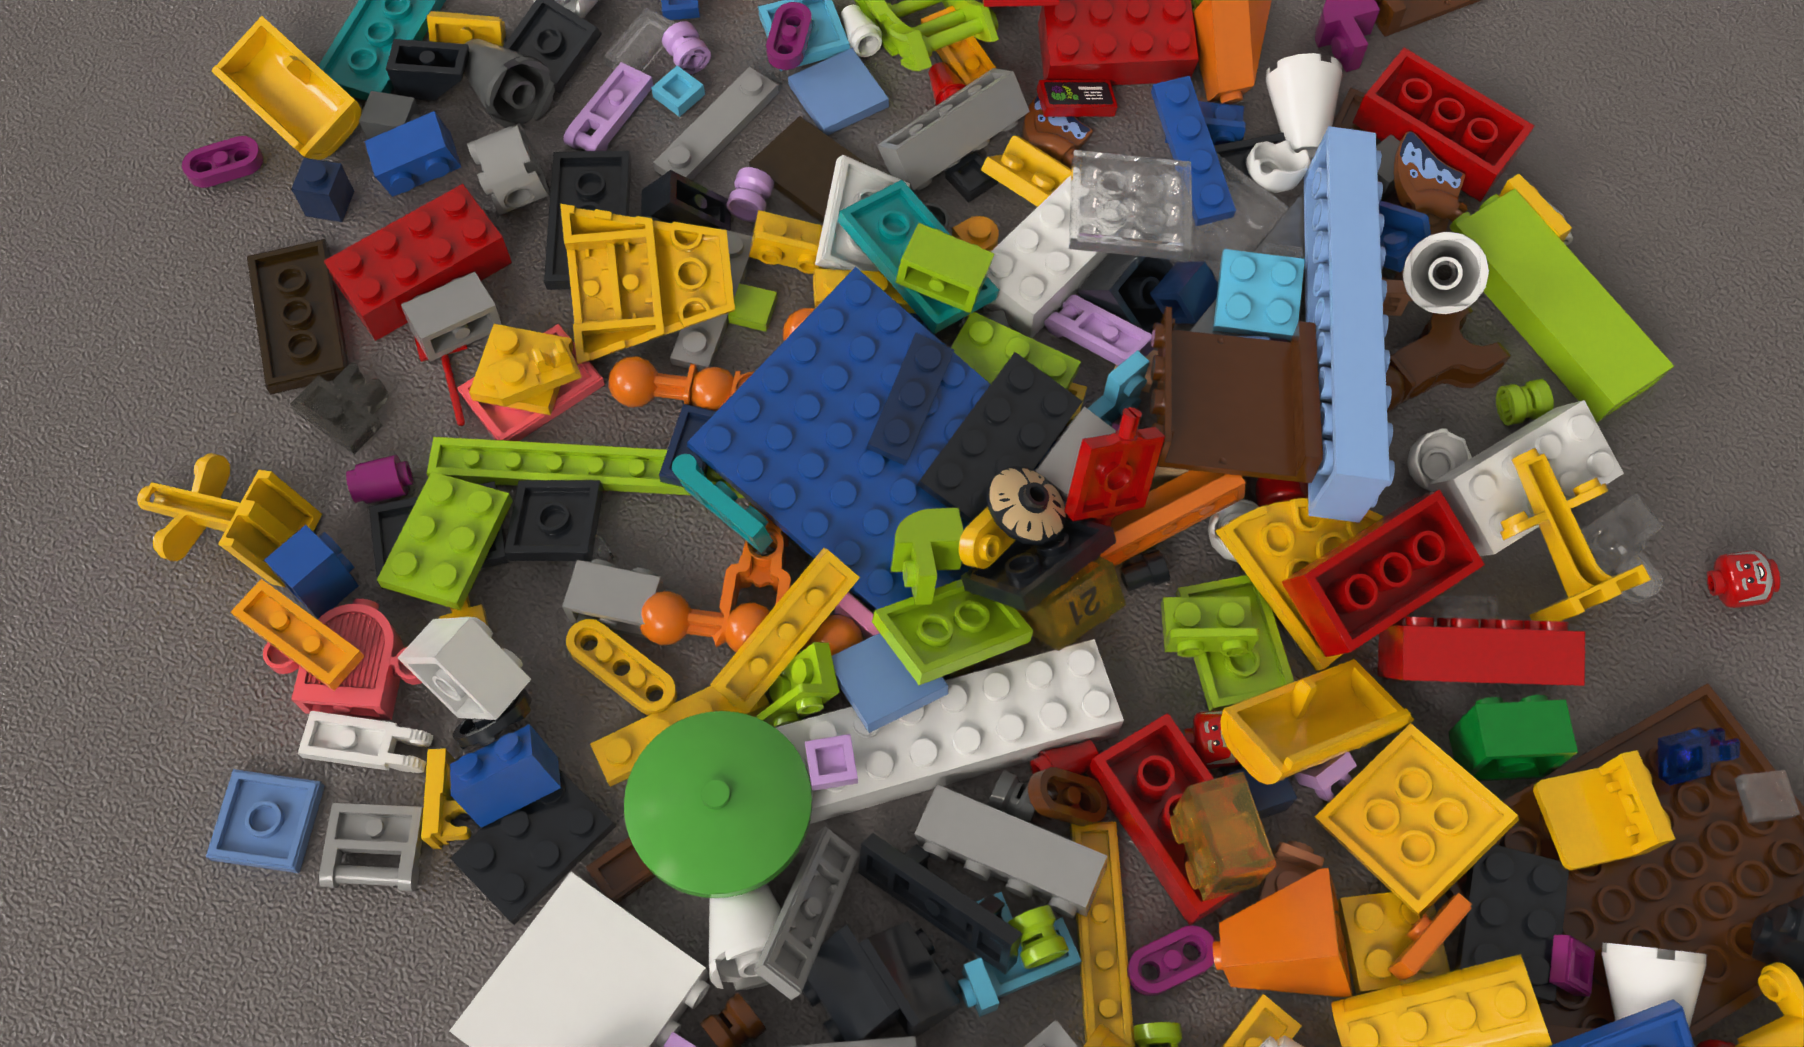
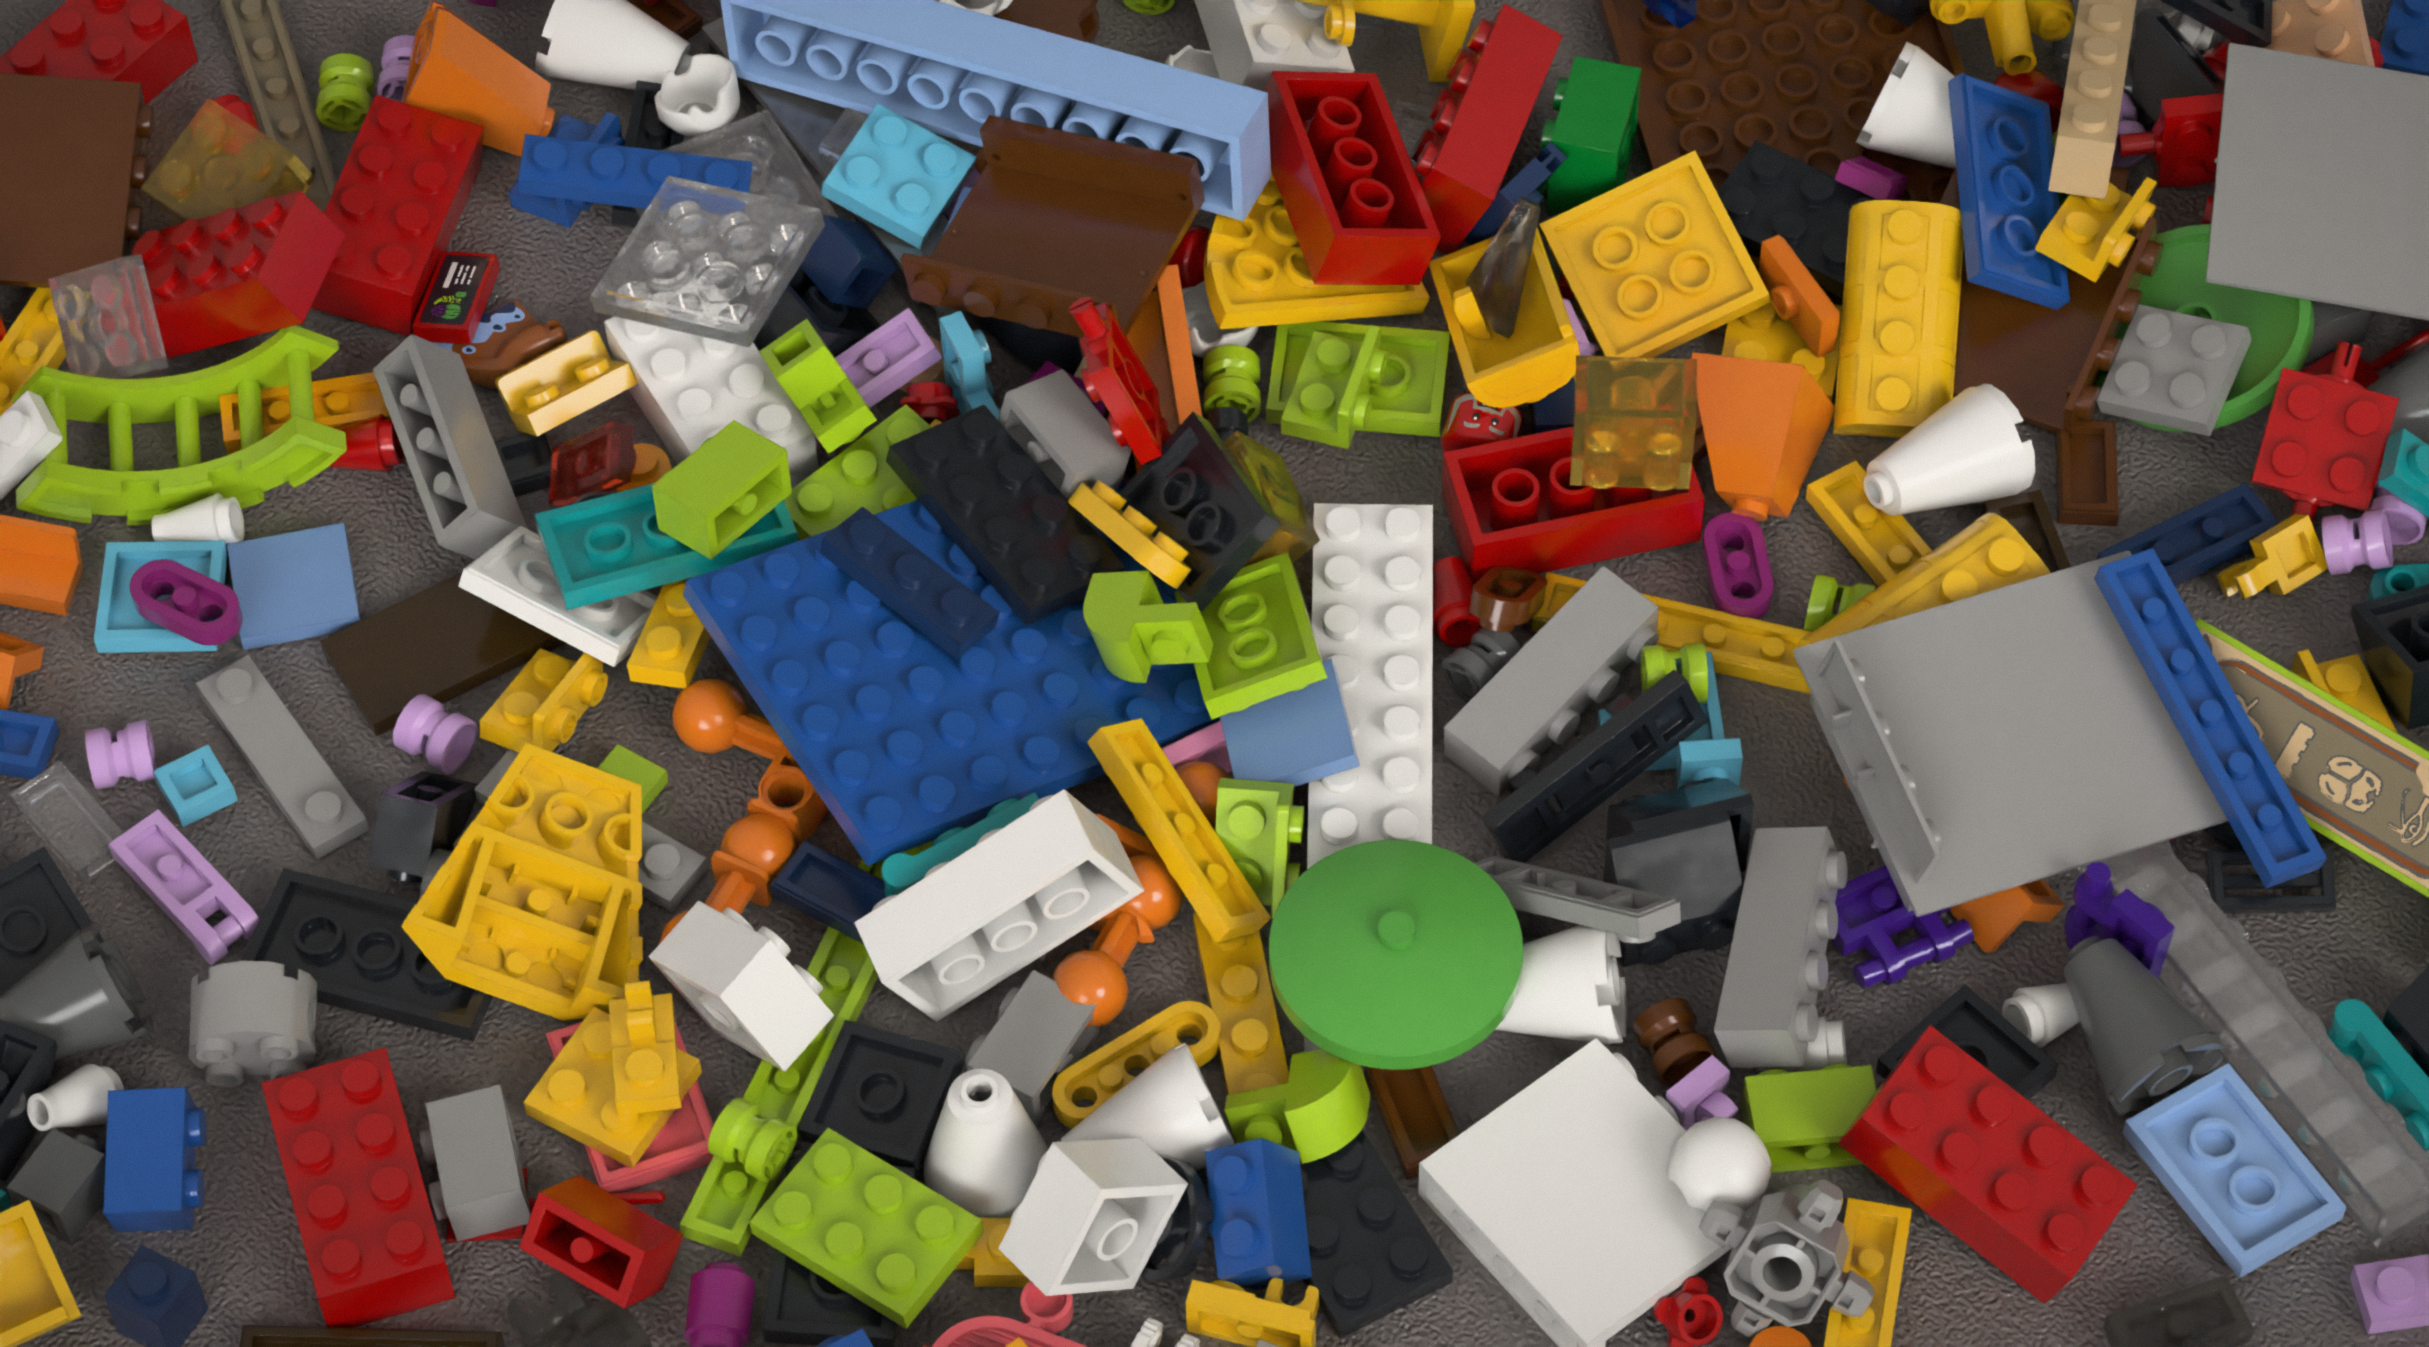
camera: 70 degrees left, 10 degrees down
(407, 397) = (601, 1241): none -> red brick
(448, 106) = (74, 1100): none -> white cone
(487, 453) = (754, 1141): none -> lime wheel
(523, 595) = (983, 1146): none -> white cone
(568, 694) = (1164, 1108): none -> white cone
(588, 407) = (743, 983): none -> white brick
(593, 786) = (1312, 1113): none -> lime brick
(684, 535) = (998, 905): none -> white brick
(831, 762) = (1388, 809): lavender plate -> none
(966, 205) = (592, 462): none -> clear red plate
(1026, 505) = (1123, 494): tan dish -> none
(1069, 303) = (818, 386): none -> lime brick
(1096, 378) = (931, 401): none -> red plate
(1193, 559) = (1236, 384): none -> lime wheel
(1351, 707) = (1502, 269): none -> clear smoke tile
(1427, 701) = (1524, 185): none -> dark blue plate
(1603, 813) = (1710, 81): yellow bracket -> none

